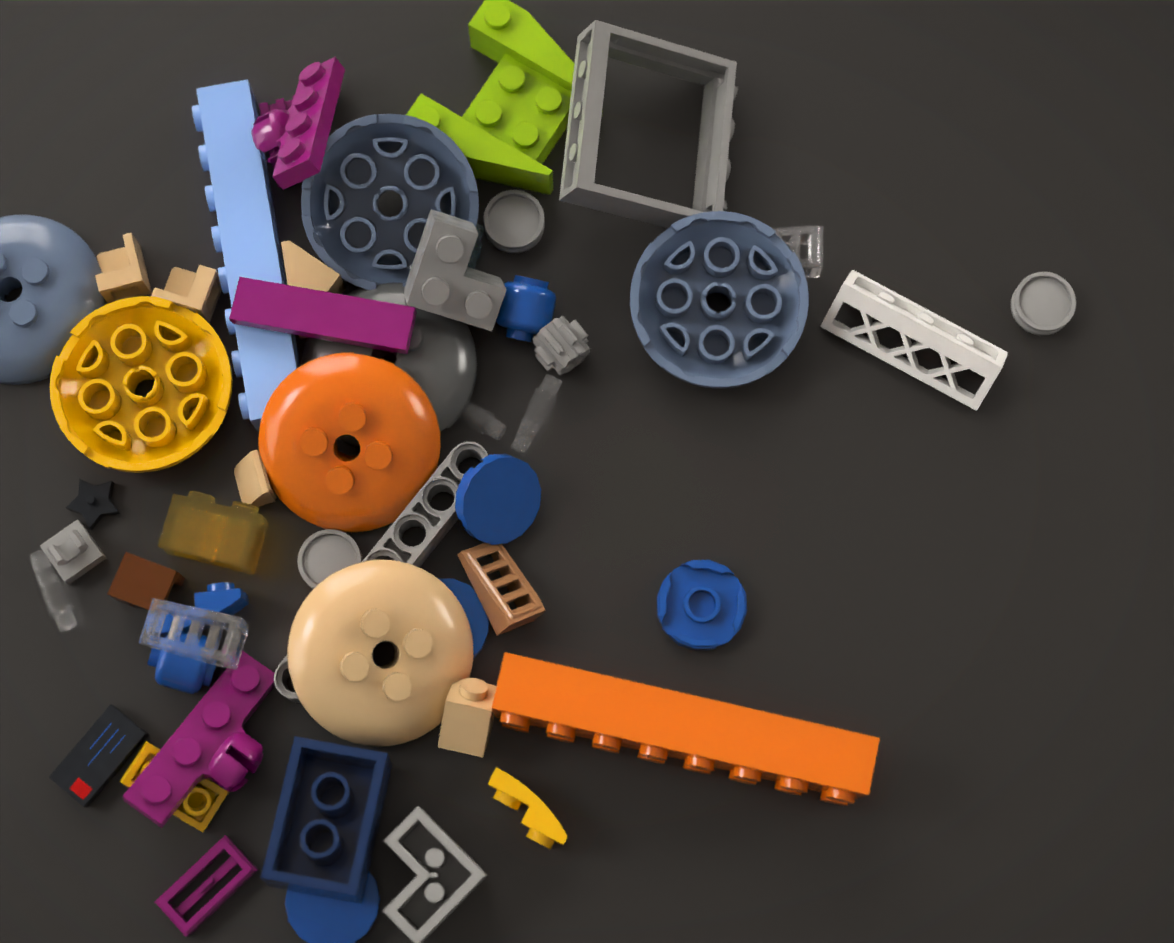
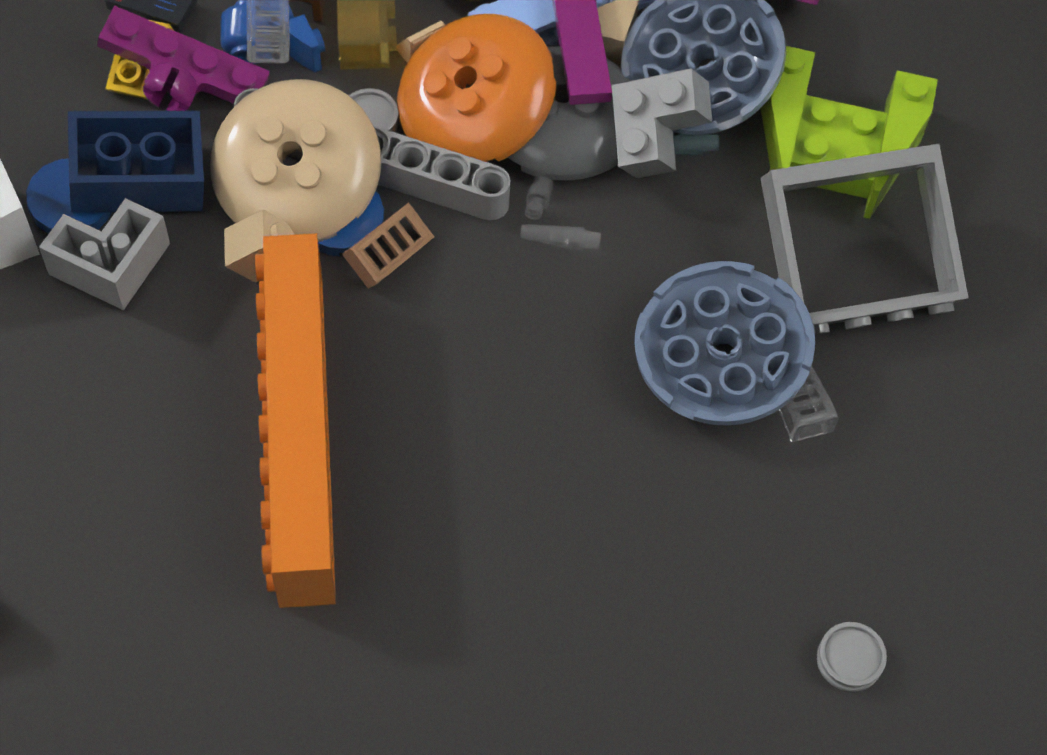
camera: 70 degrees right, 15 degrees down
(237, 858) = (52, 108): magenta tile -> none
(498, 499) = (465, 216): blue tile -> none
(514, 221) = (735, 172): light grey piece -> none
(526, 307) = (654, 196): blue head -> none
(542, 823) = (190, 325): yellow slope -> none
(561, 345) = (630, 232): light grey gear -> none
(701, 605) = (427, 420): blue tile -> none
(921, 325) = (774, 538): white fence -> none

